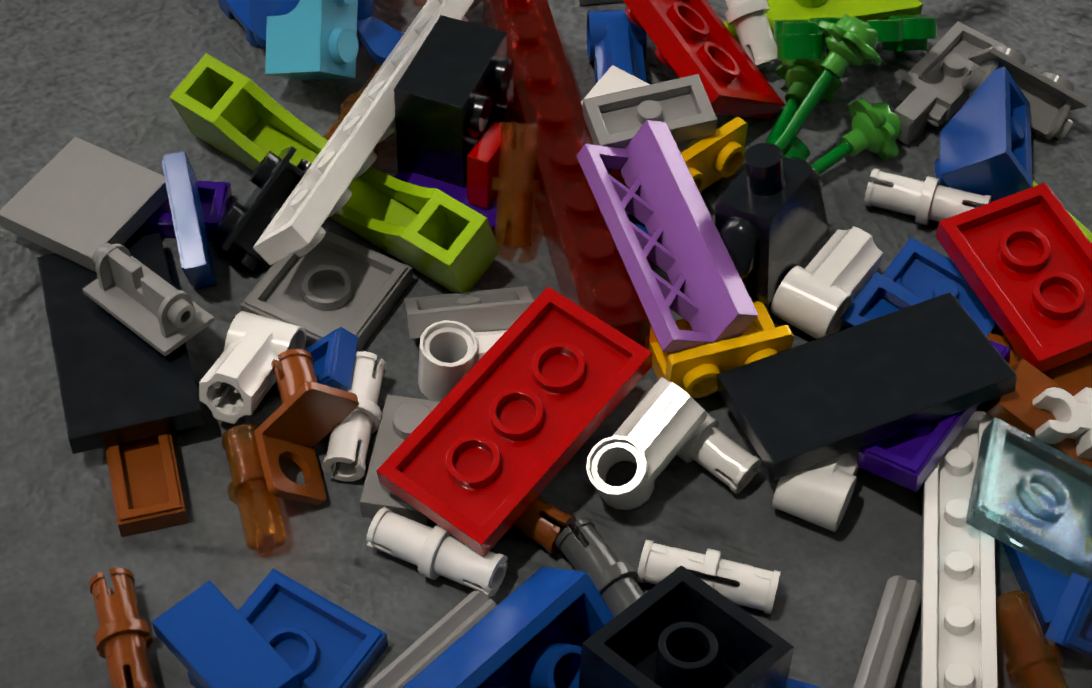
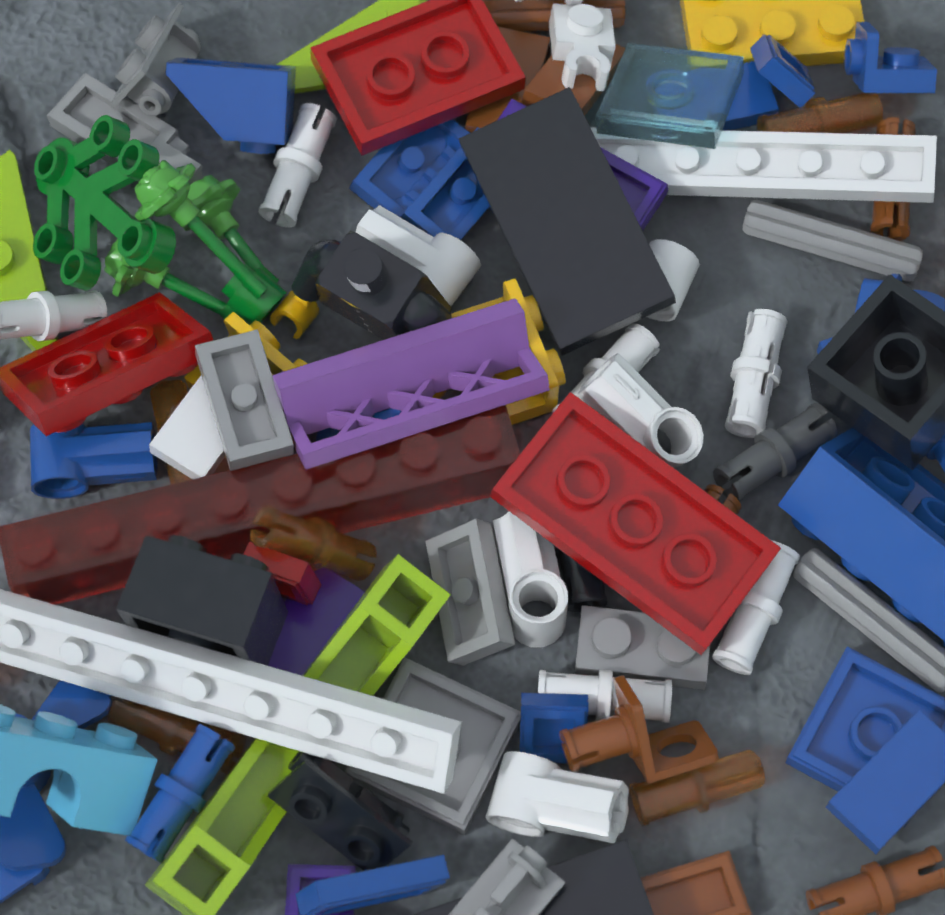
camera: 90 degrees left, 15 degrees up
(298, 95) = (180, 793): none -> blue pin

